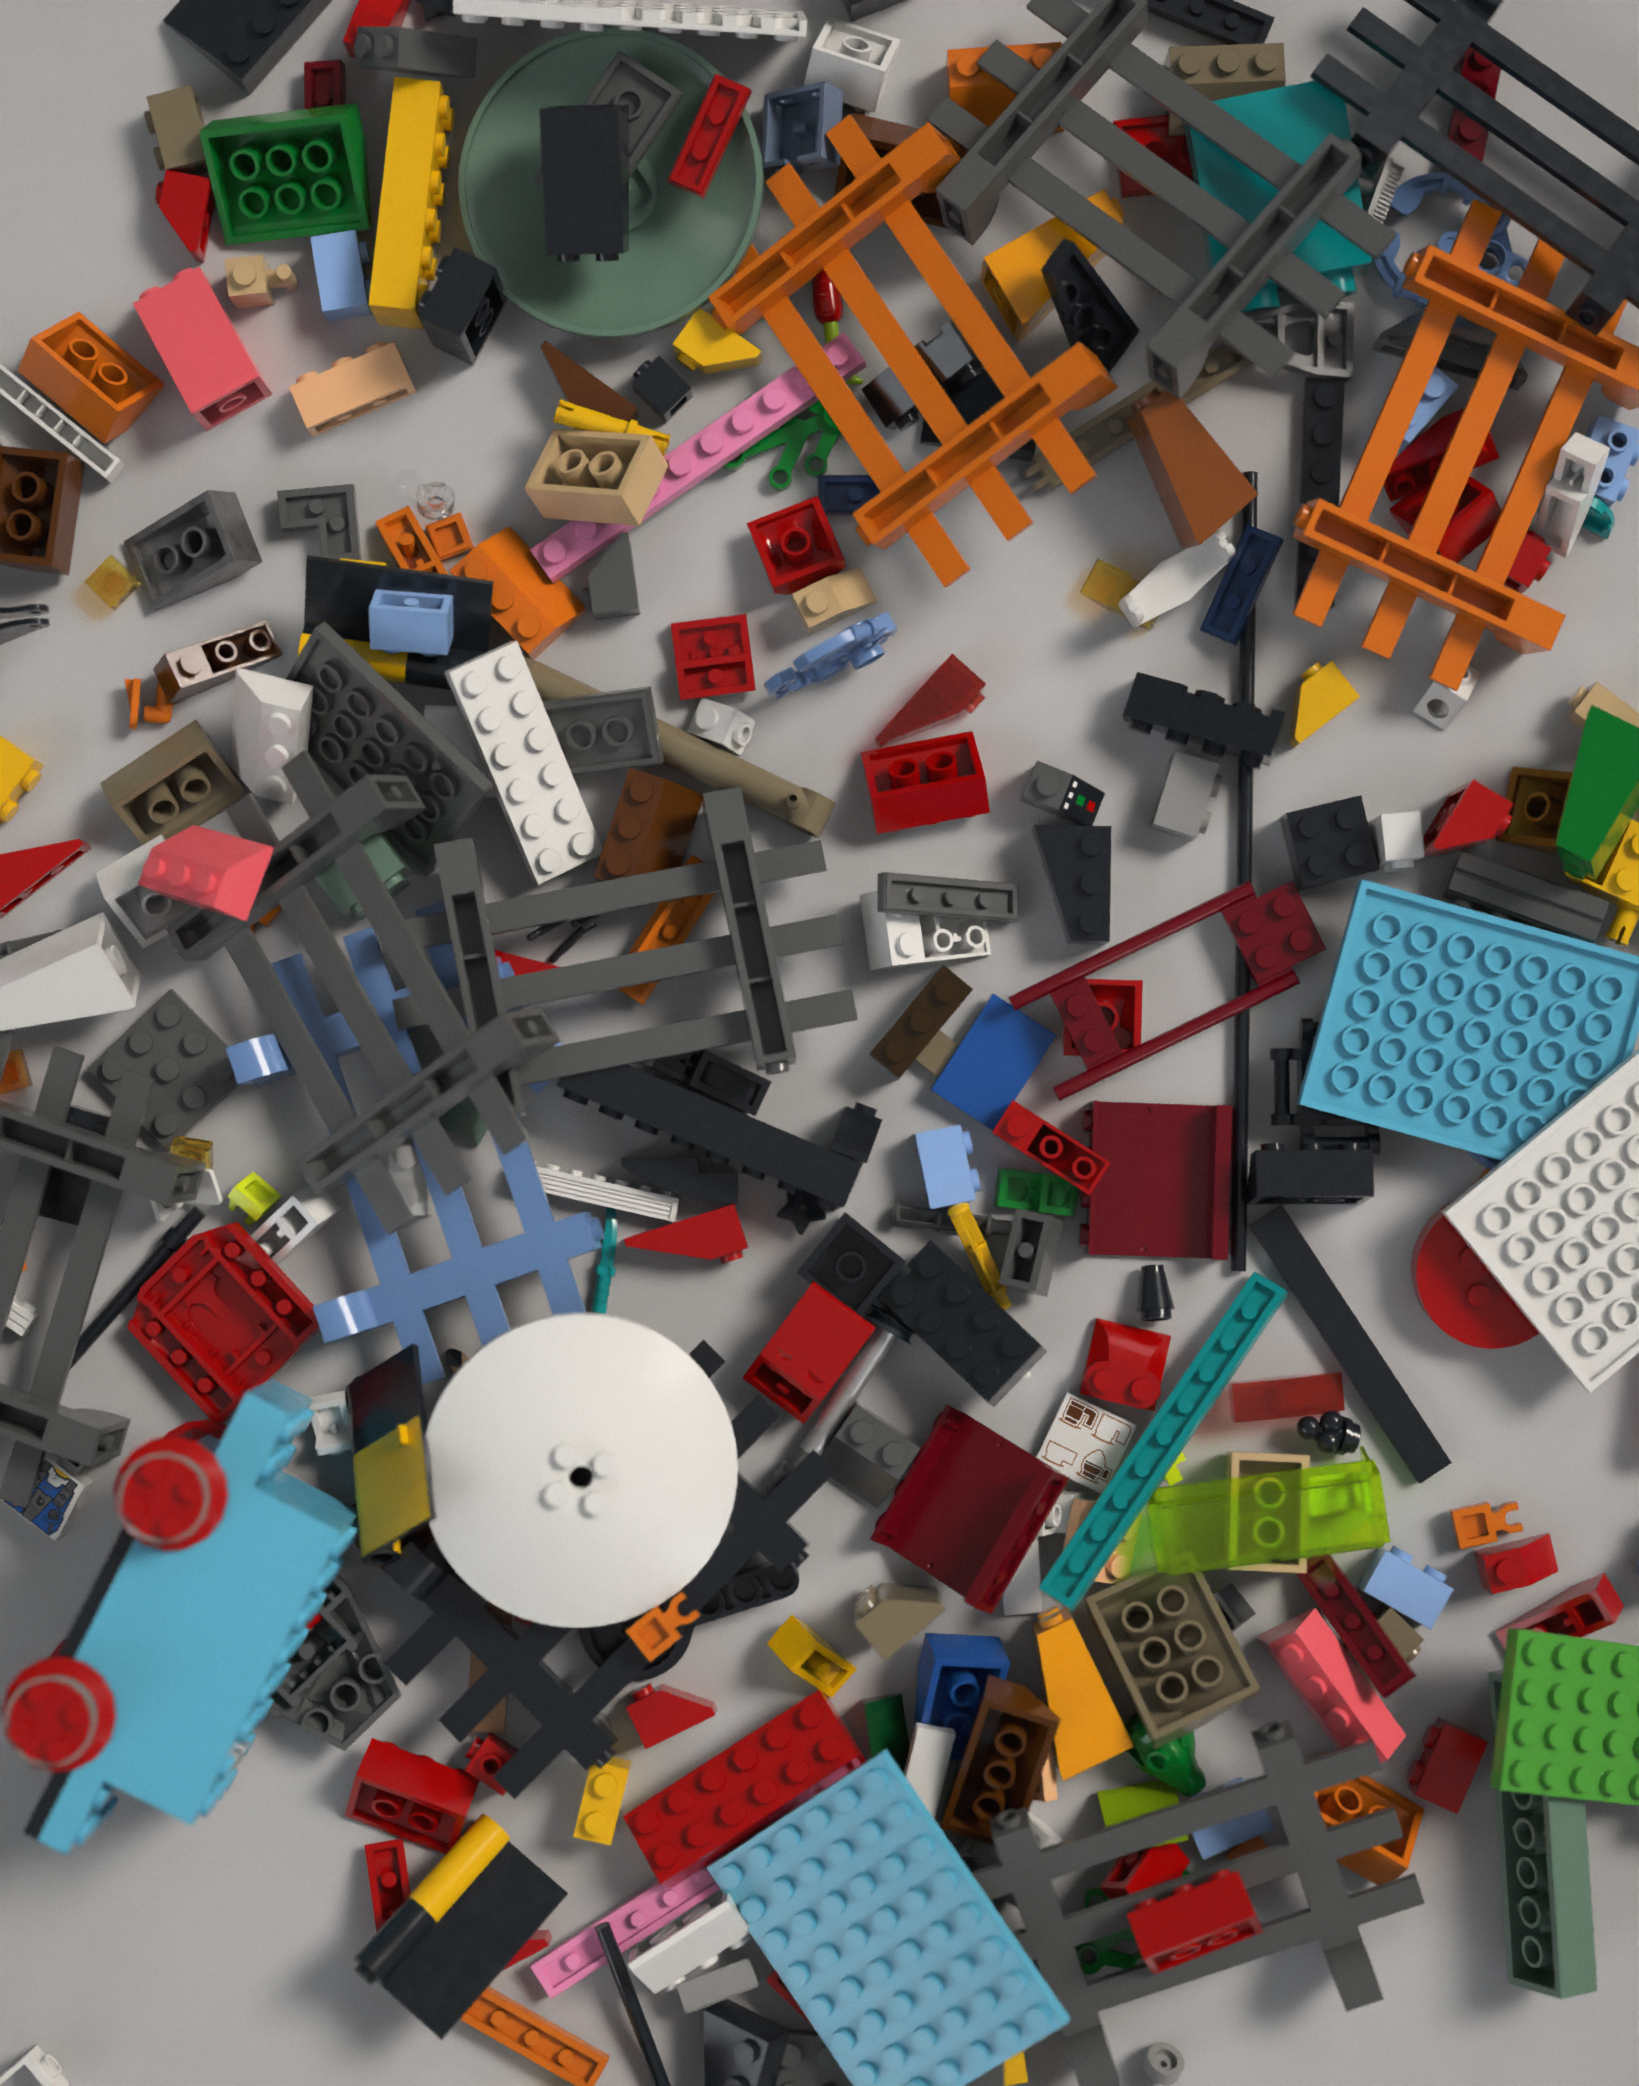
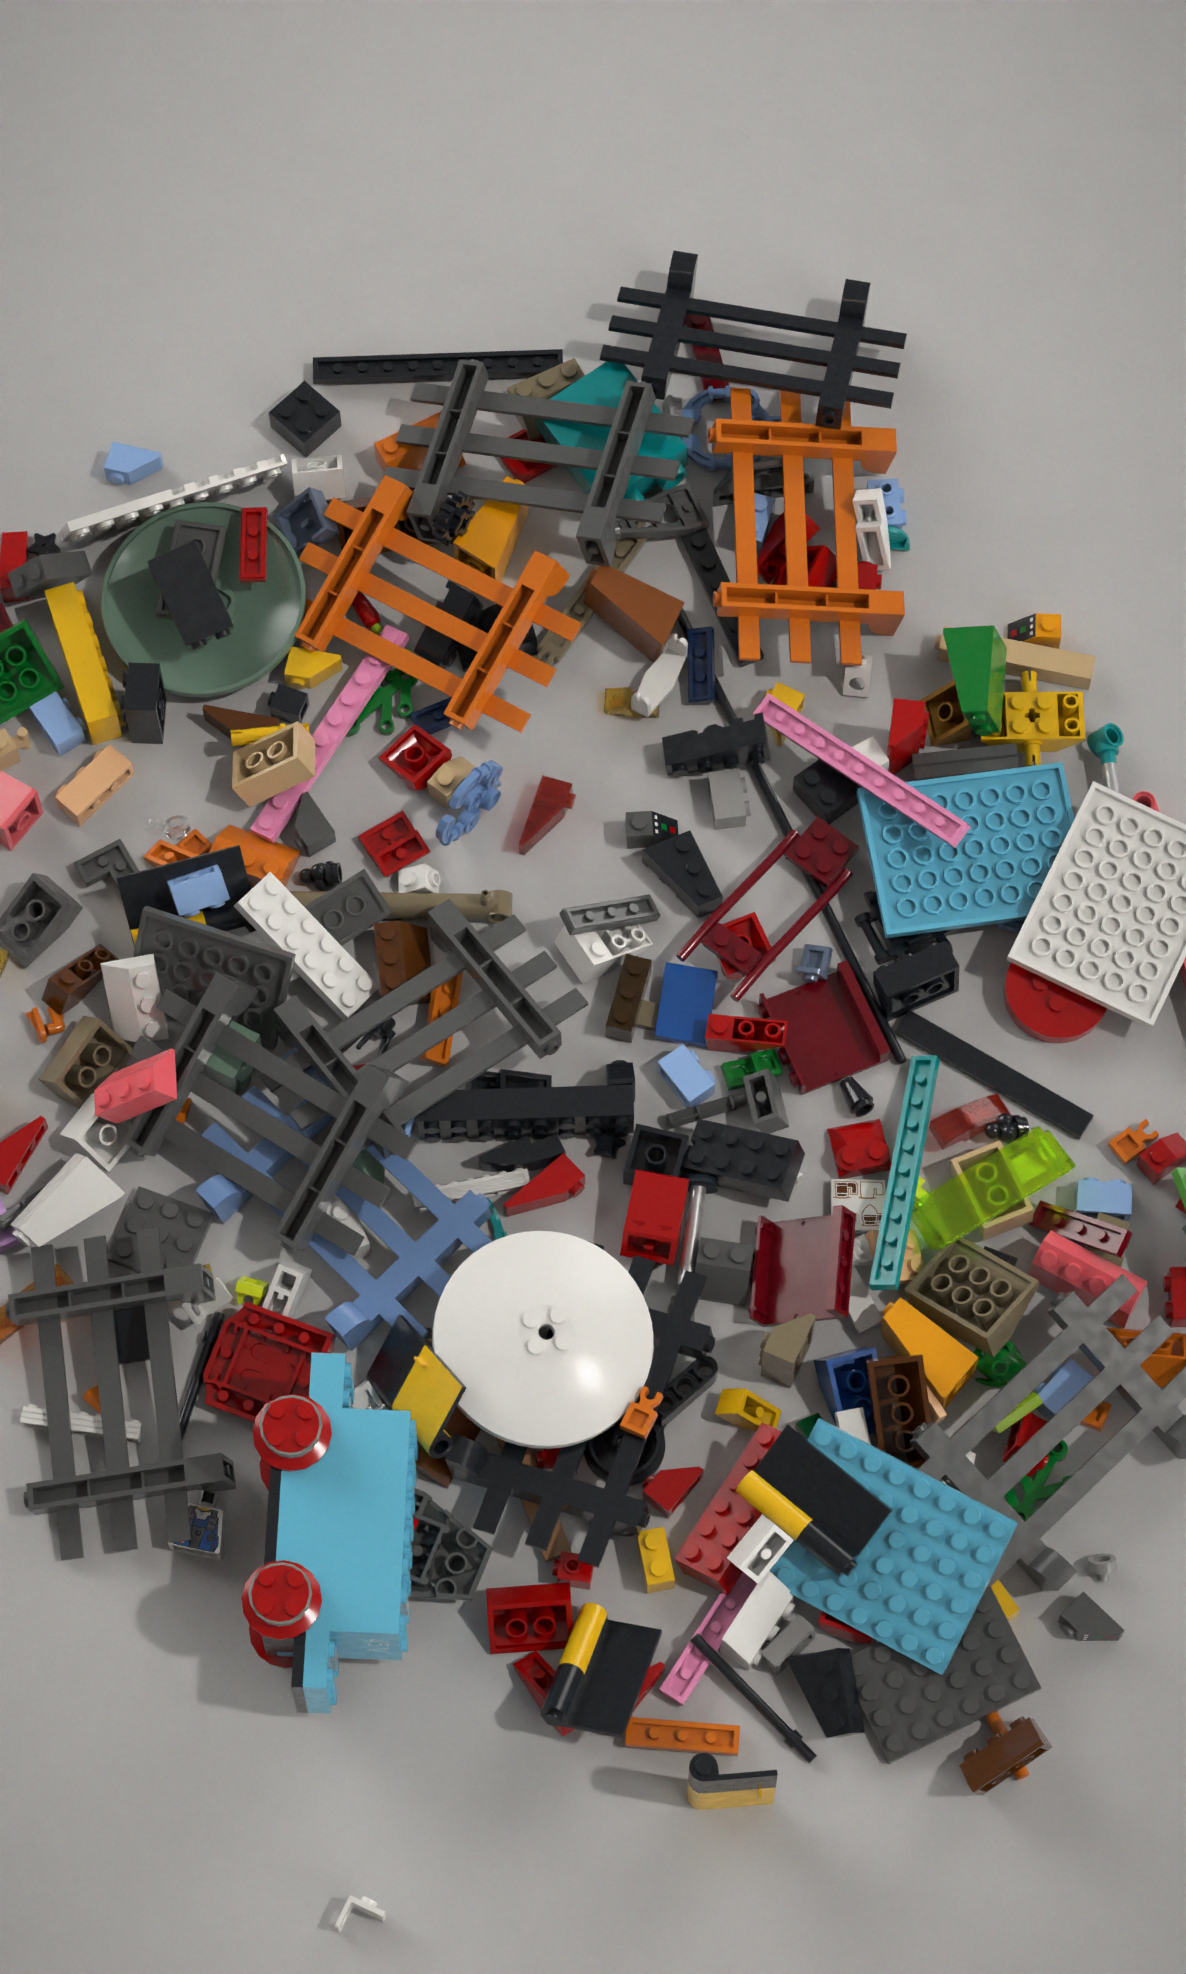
camera: 25 degrees left, 20 degrees down
(600, 658) = (322, 875): none -> black piece
(728, 1878) = (760, 1549): none -> white brick
(823, 1856) = (814, 1501): none -> black door
(925, 782) = (563, 859): red slope -> none
(978, 1252) = (725, 1111): yellow piece -> none
(998, 225) = (453, 518): none -> black gear
(1087, 305) = (524, 538): black wing -> none
(1189, 1084) = (815, 963): none -> sand blue bracket
(1194, 1921) = (1071, 1440): red slope -> none
(1379, 860) = (863, 771): none -> bright pink plate

